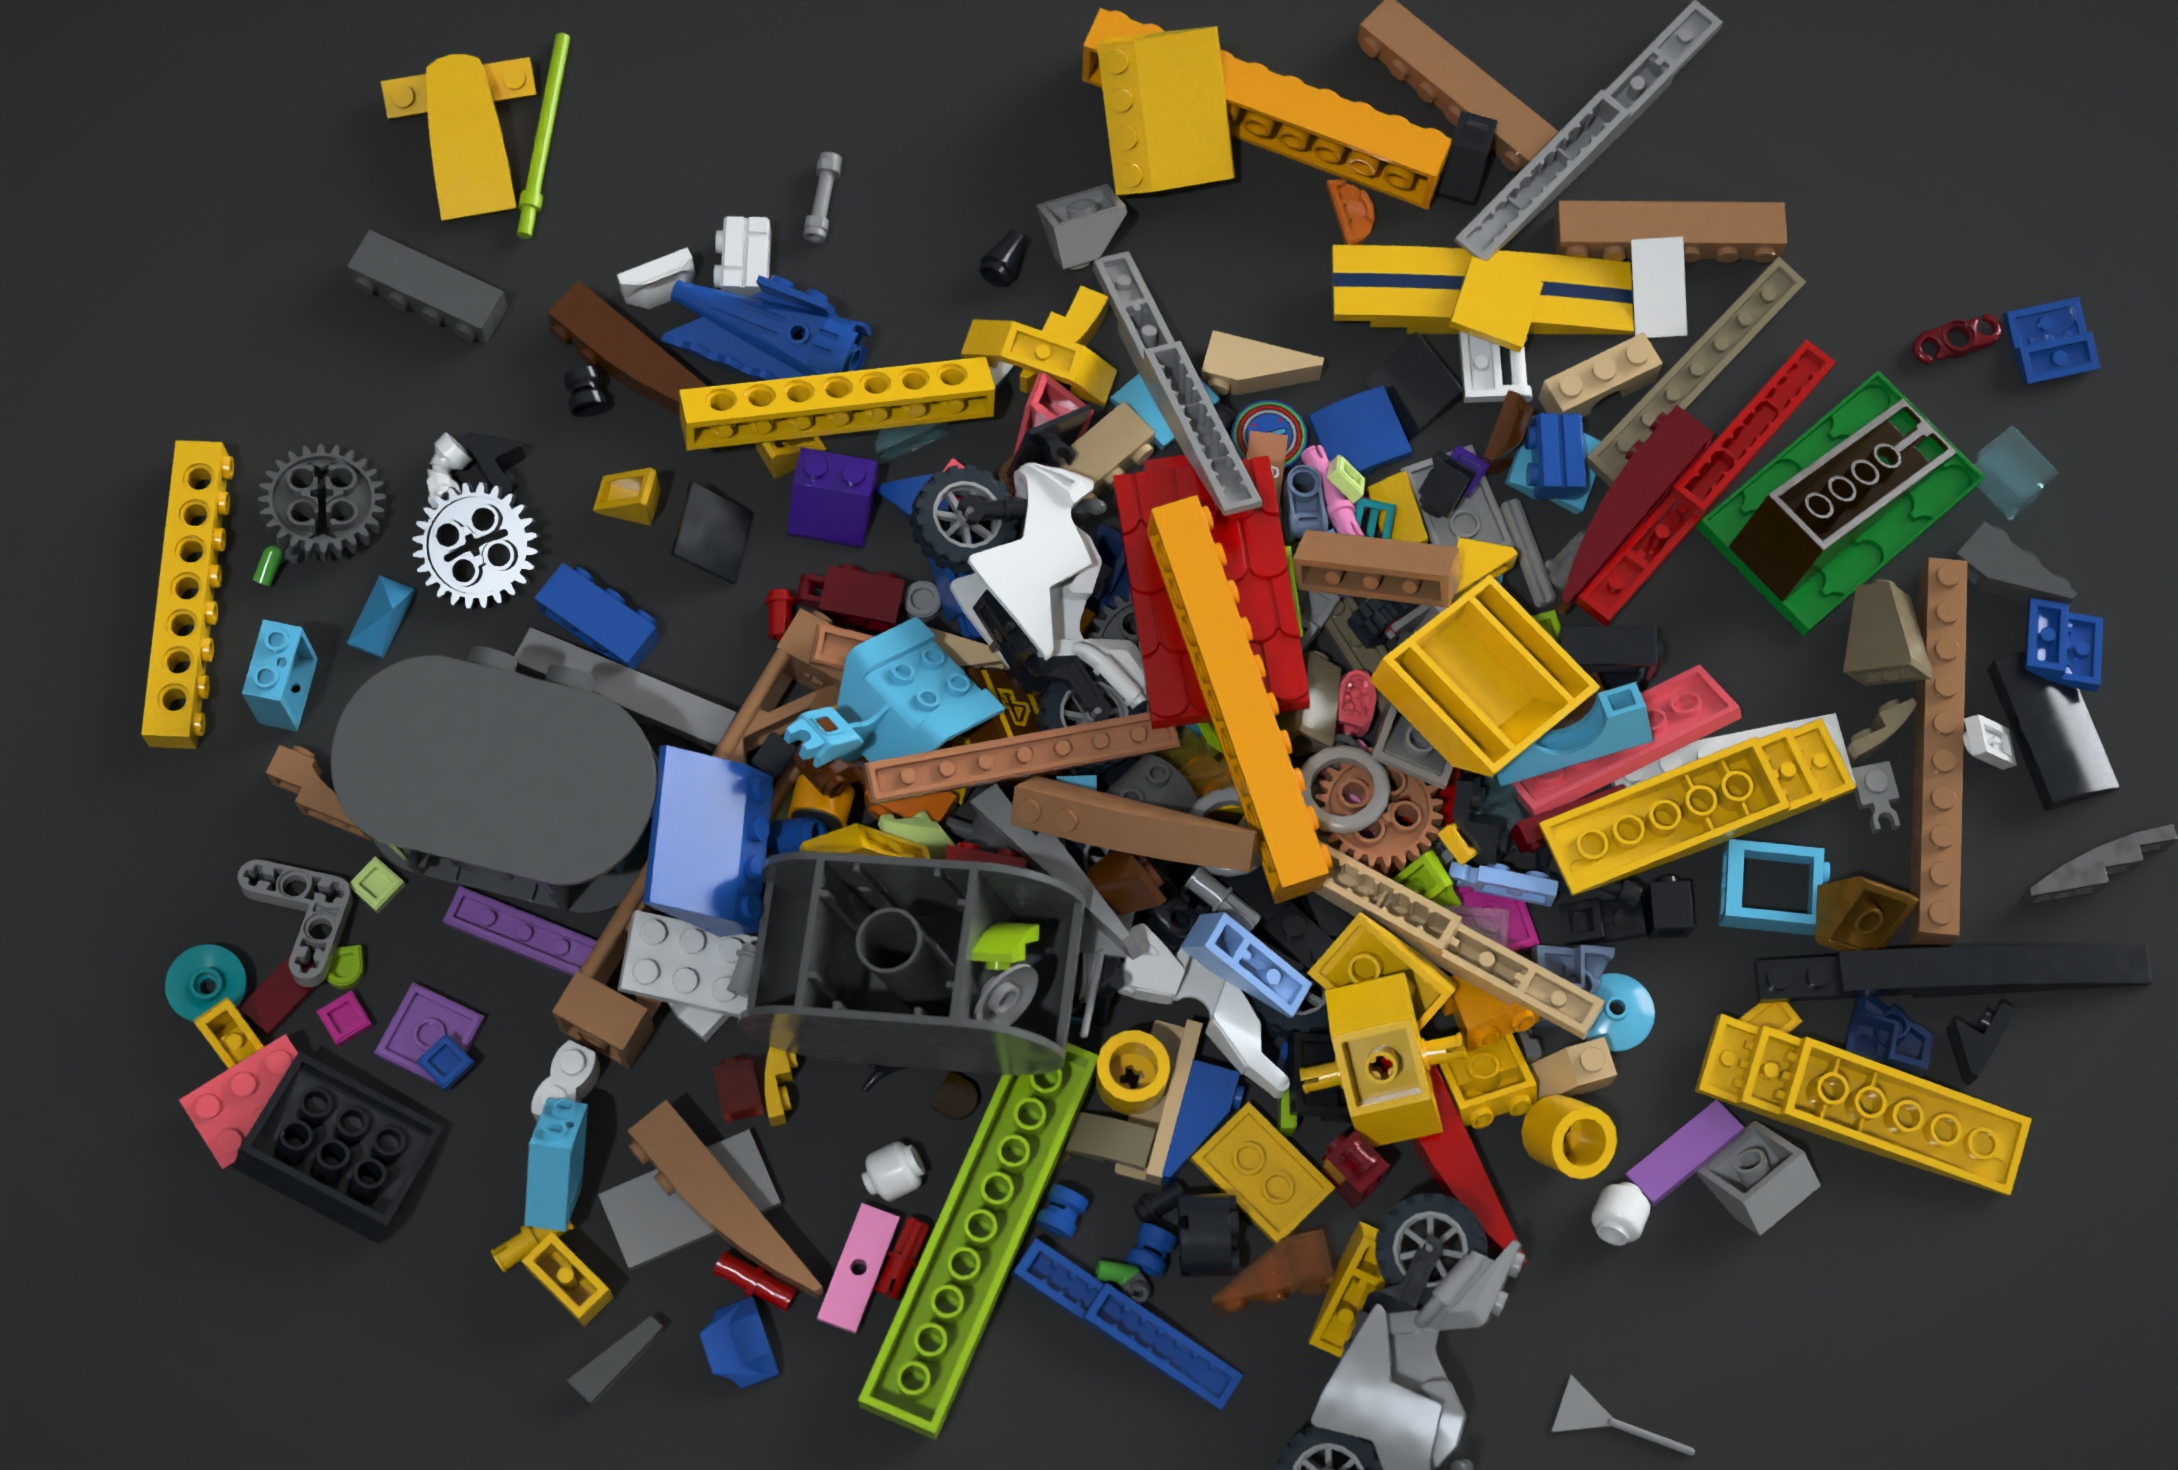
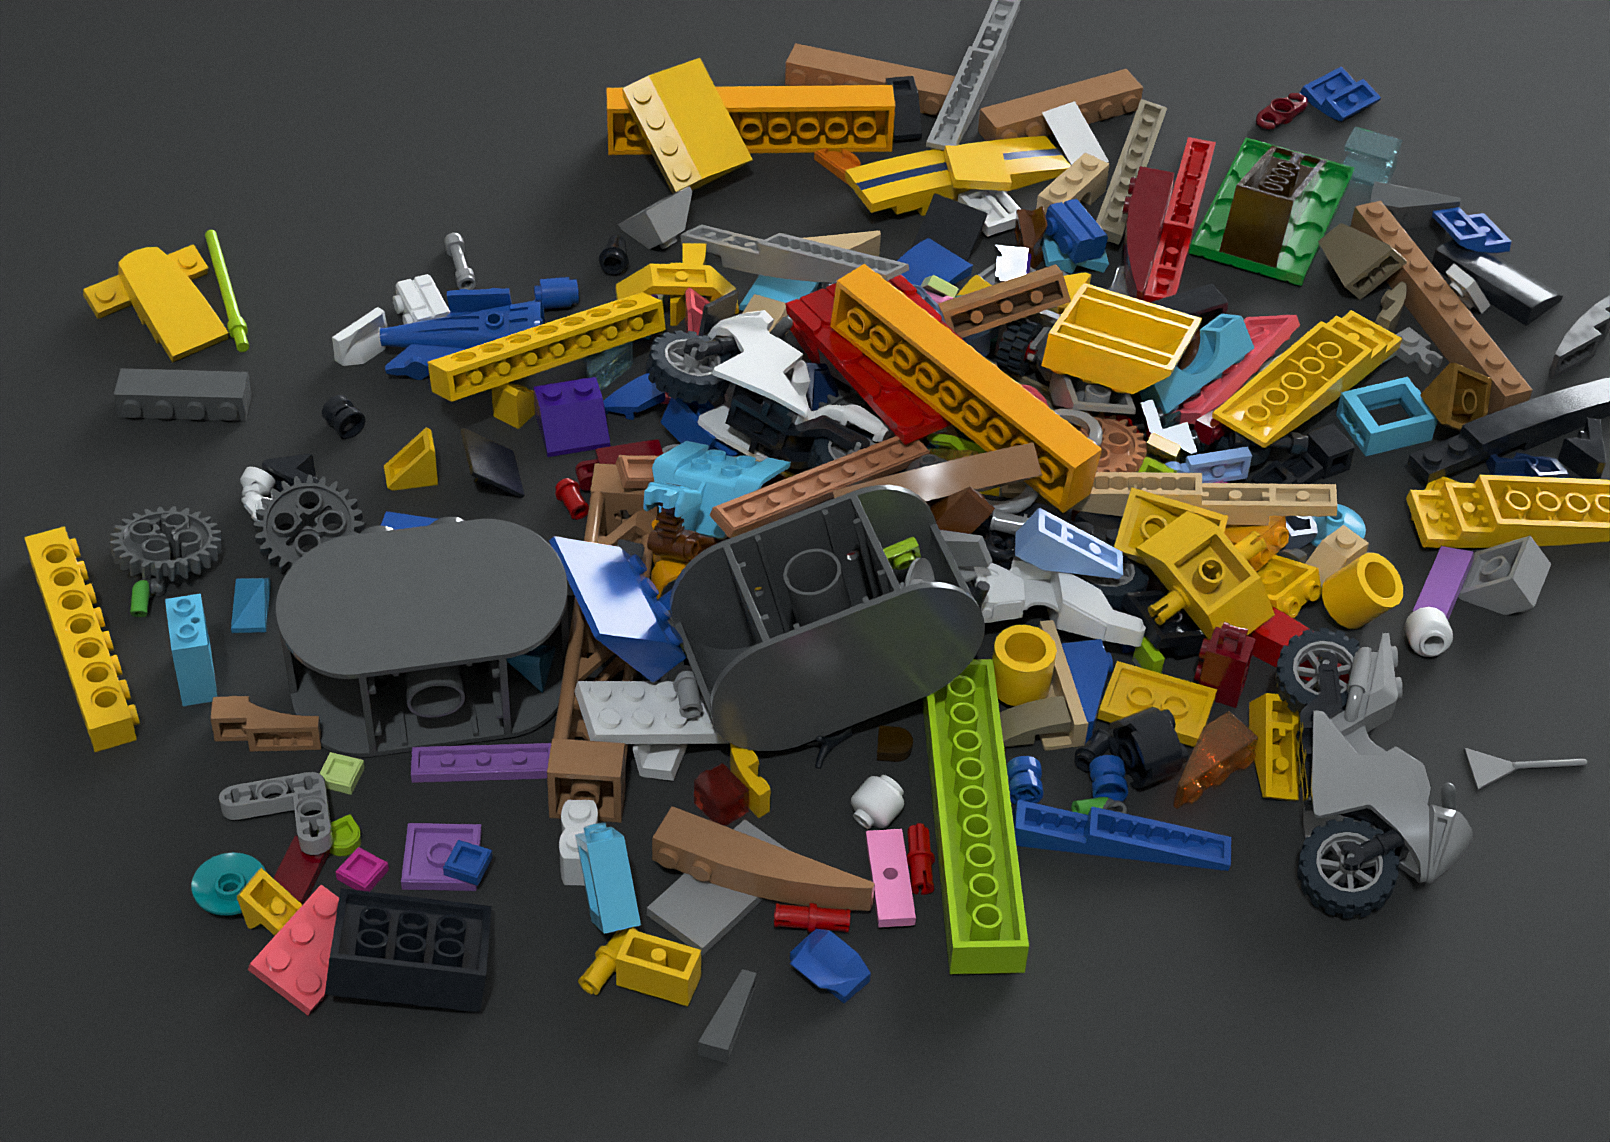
camera: 25 degrees left, 25 degrees down
(619, 348) = (374, 387): reddish brown slope -> none
(906, 296) = (557, 292): none -> blue brick

